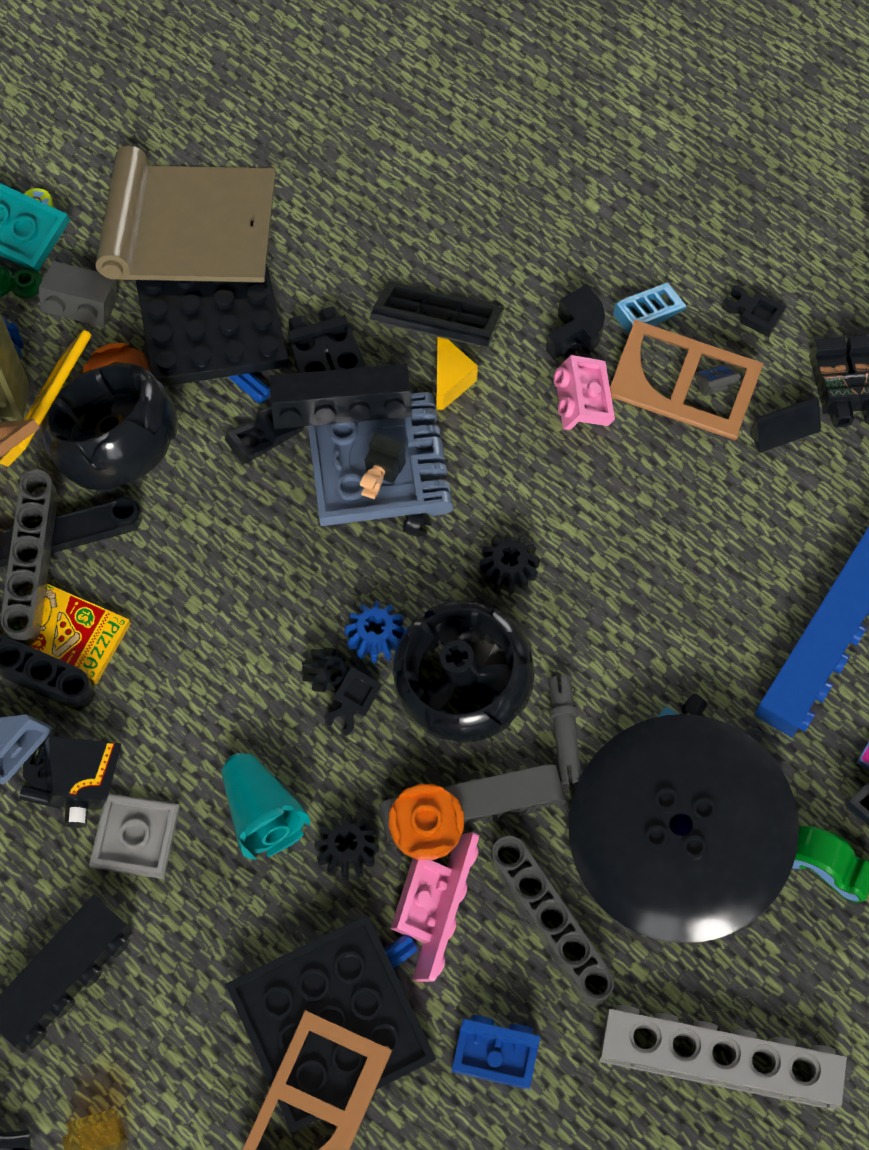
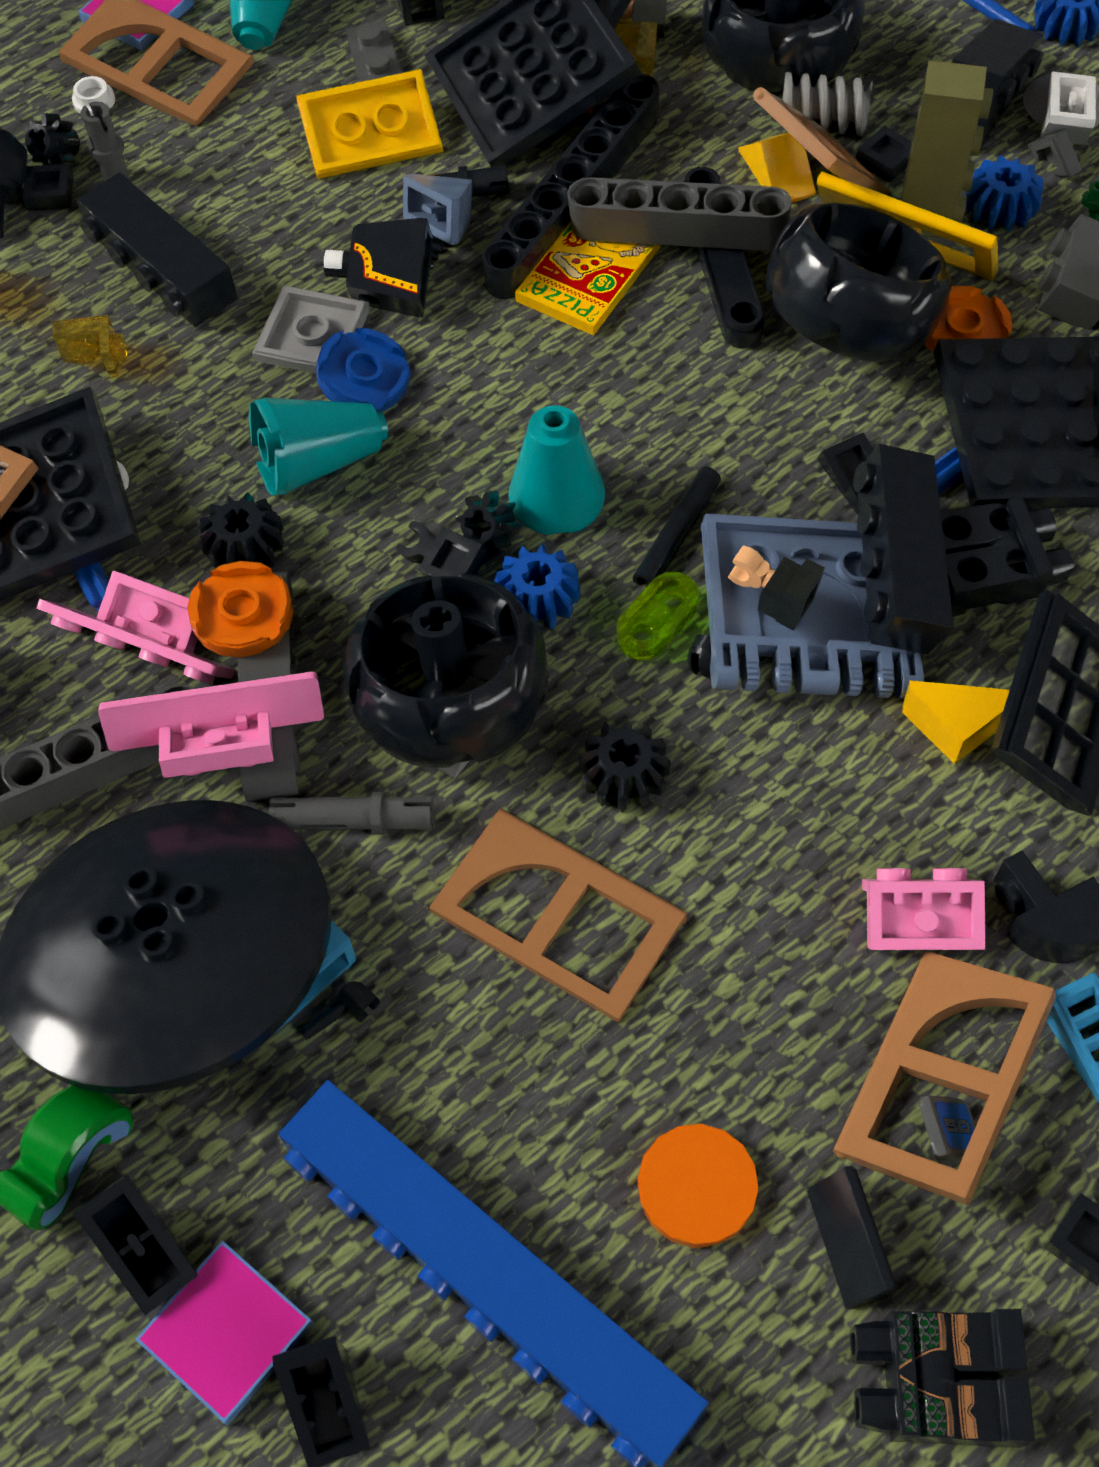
camera: 100 degrees right, 5 degrees down
(162, 1016) = (90, 339): none -> clear yellow bracket
(180, 784) = (363, 369): none -> blue tile
(284, 628) = (556, 475): none -> teal cone
(311, 549) = (678, 526): none -> black piece
(391, 553) = (653, 616): none -> clear neon green plate
(537, 811) = (212, 724): none -> bright pink bracket
(570, 627) = (516, 845): none -> medium nougat window
(770, 506) = (697, 1185): none -> orange tile

